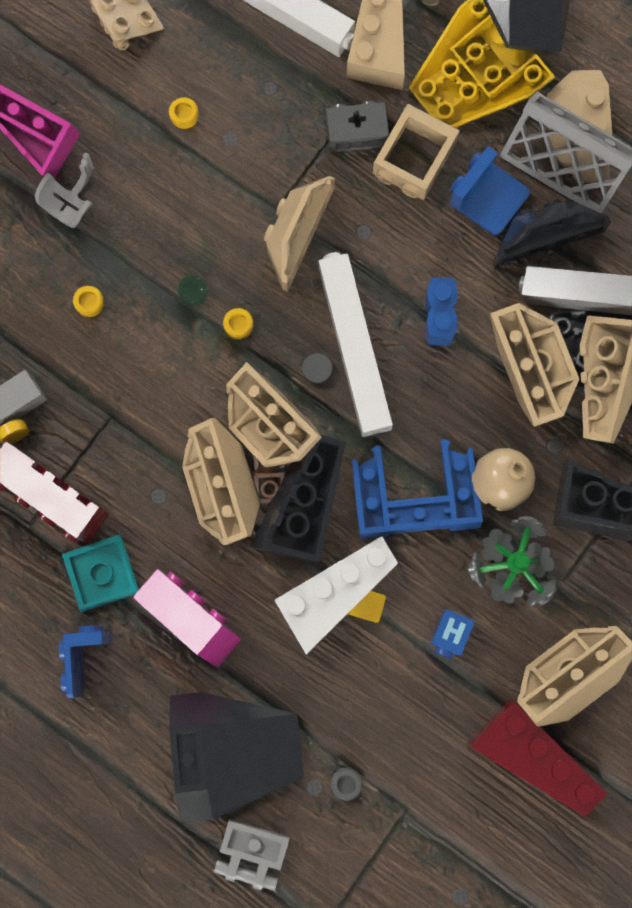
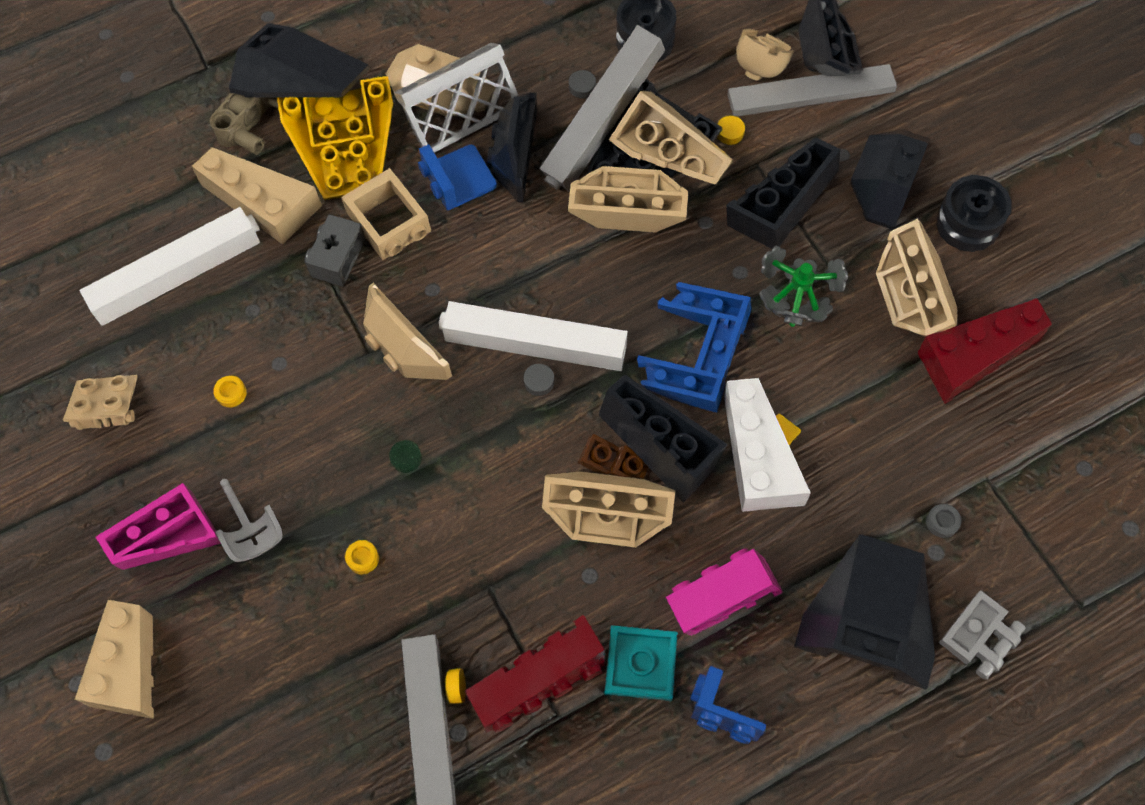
camera: 65 degrees left, 15 degrees down
(238, 323) = (459, 429): yellow tile -> none
(267, 420) = (571, 432): tan wedge -> none
(439, 305) = (540, 253): blue brick -> none
(451, 634) = (839, 368): blue brick -> none
(503, 478) = (718, 265): tan cylinder -> none

